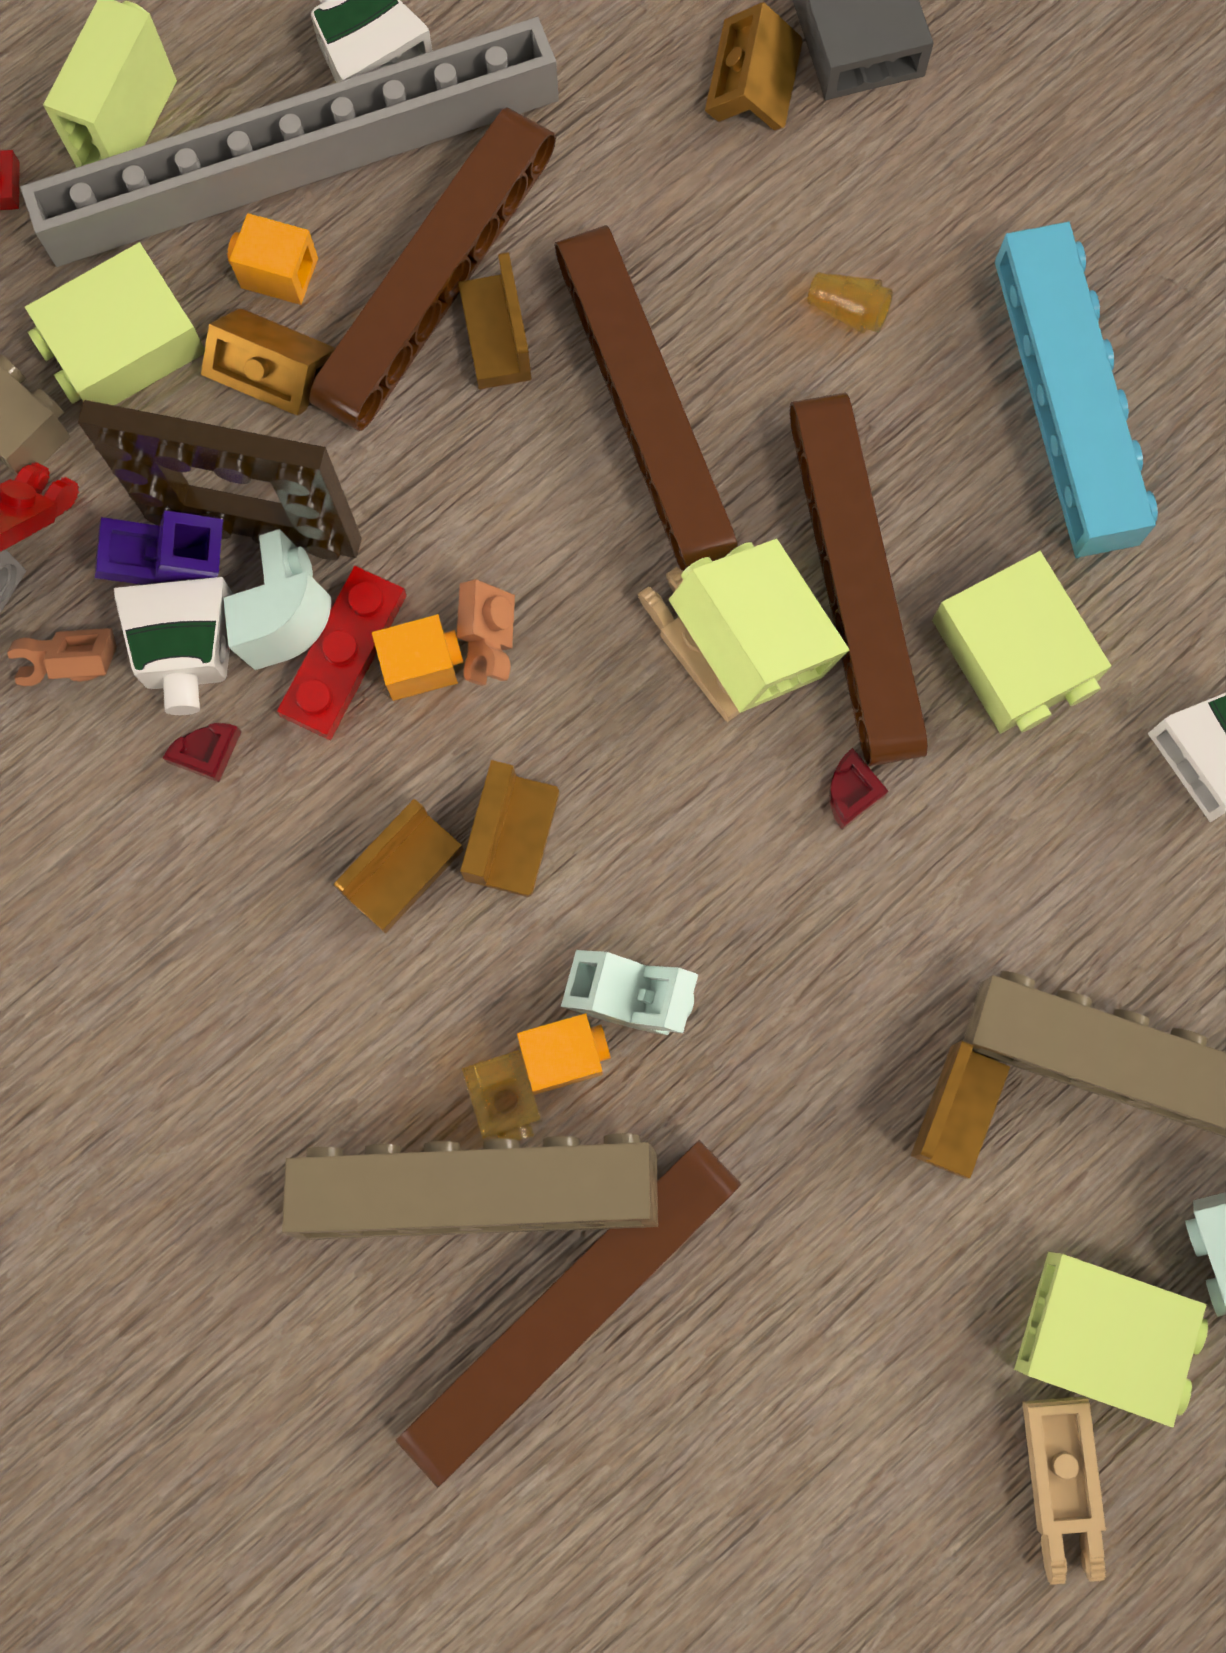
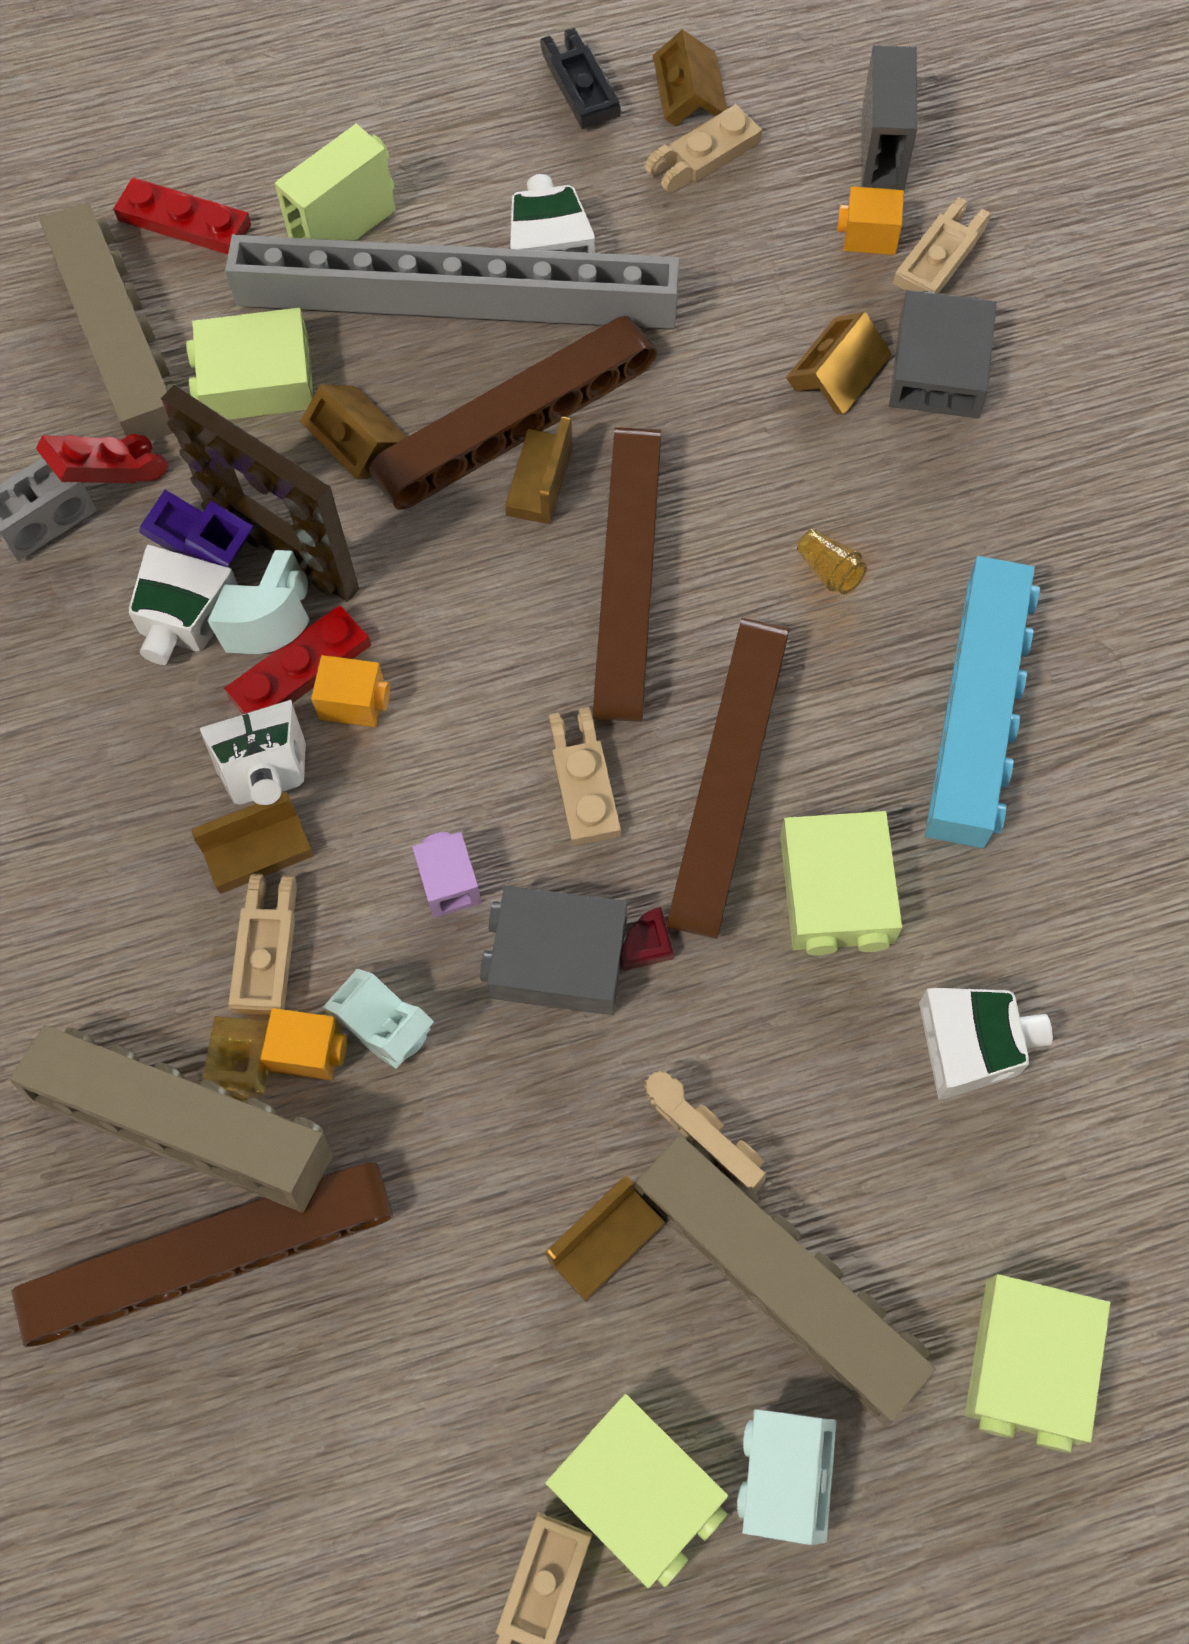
camera: 25 degrees right, 10 degrees down
(69, 654) = (95, 583): nougat plate -> none
(204, 750) = (156, 695): dark red tile -> none
(273, 258) = (396, 359): light orange brick -> none
(356, 770) = (258, 753): none -> white torso
(468, 974) = (263, 949): none -> tan hinge
(487, 626) = (417, 689): nougat plate -> none
(509, 831) = (352, 853): pearl gold panel -> none
(618, 808) = (446, 873): none -> lavender brick
(757, 623) = (626, 774): yellowish green brick -> none
(771, 839) = (555, 949): none -> dark grey brick
(1003, 954) = (704, 1128): none -> tan hinge

